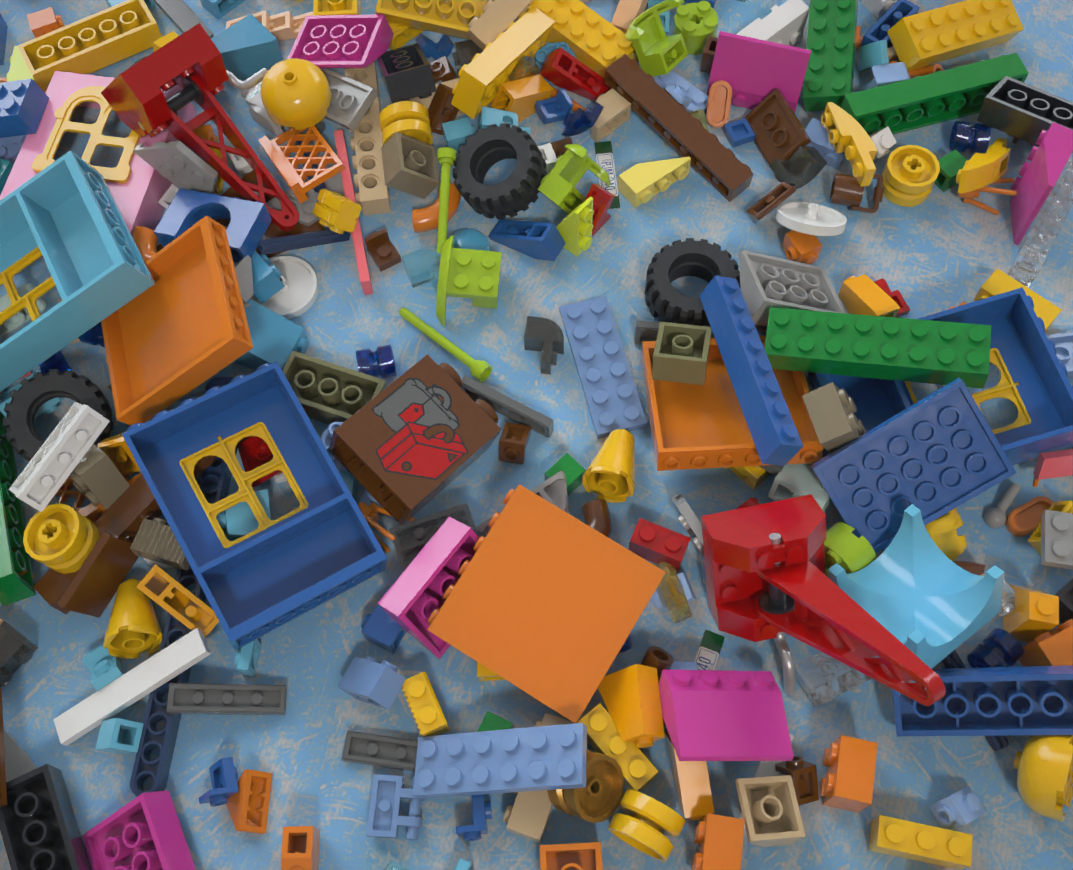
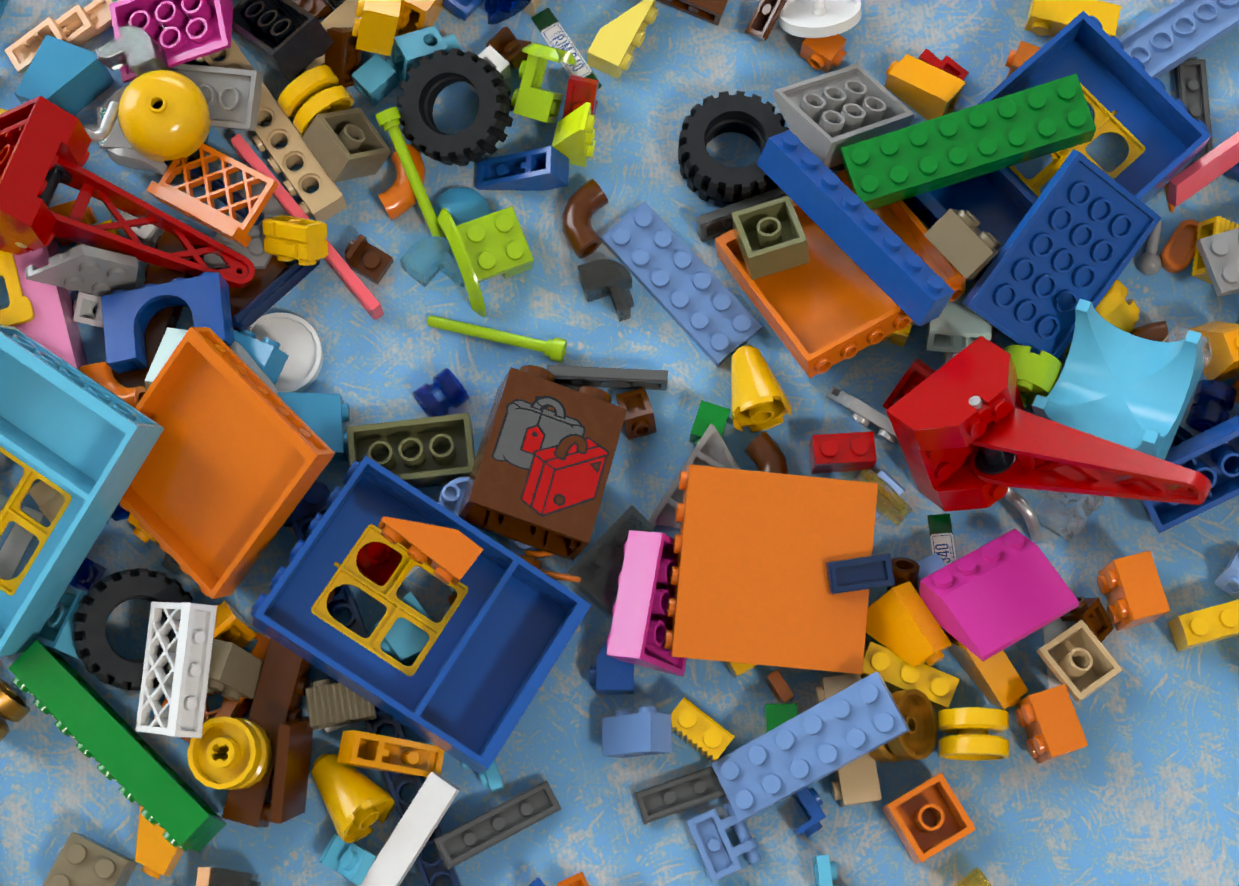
camera: 30 degrees left, 10 degrees up
(290, 452) = (440, 547): none -> orange slope
(299, 44) = (133, 49): none -> clear smoke brick
(508, 704) = (779, 687): none -> dark orange tile
(549, 285) = (577, 218): none -> reddish brown cylinder
(614, 638) = (860, 573): none -> dark blue tile

